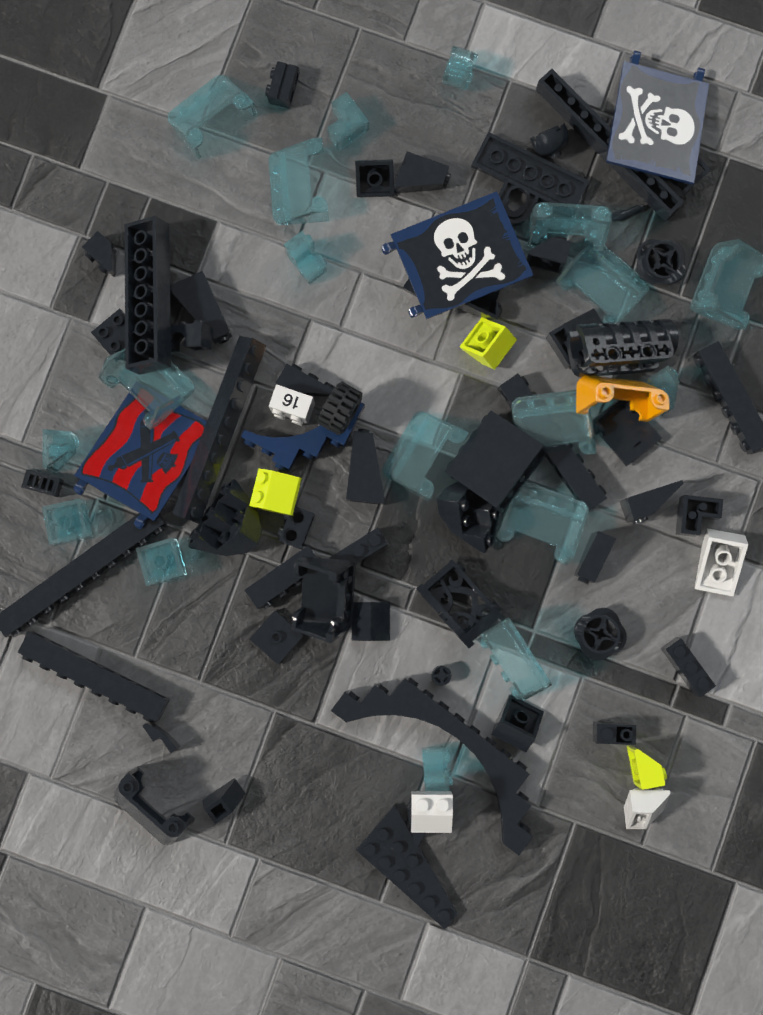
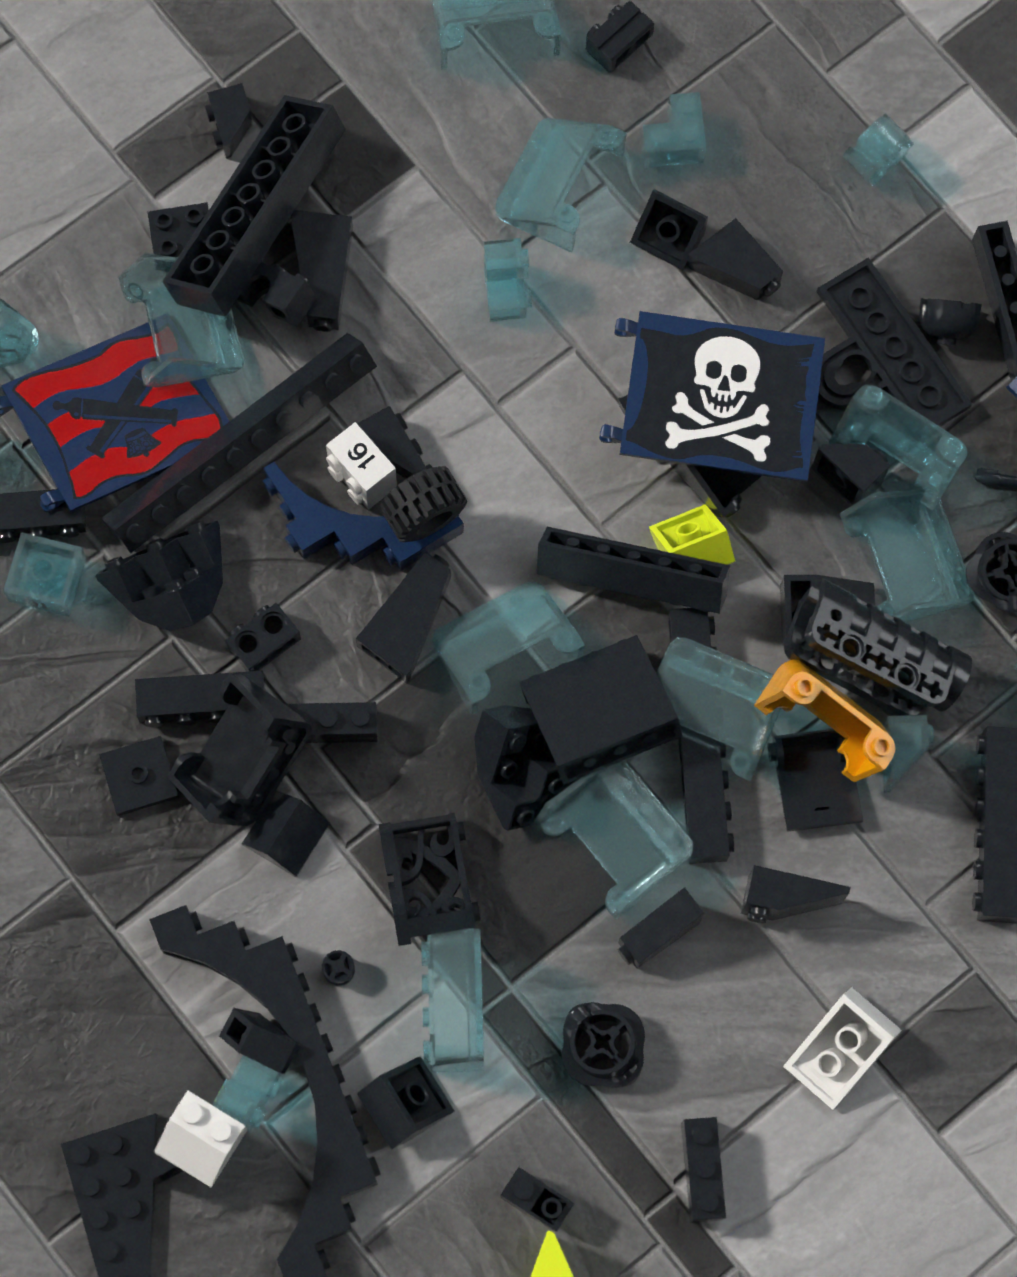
camera: 25 degrees right, 10 degrees down
(275, 492) = (263, 570): neon yellow slope -> none
(425, 738) = (259, 1039): none -> black slope
(468, 376) = (633, 570): none -> black brick
(692, 511) = (851, 947): black brick -> none

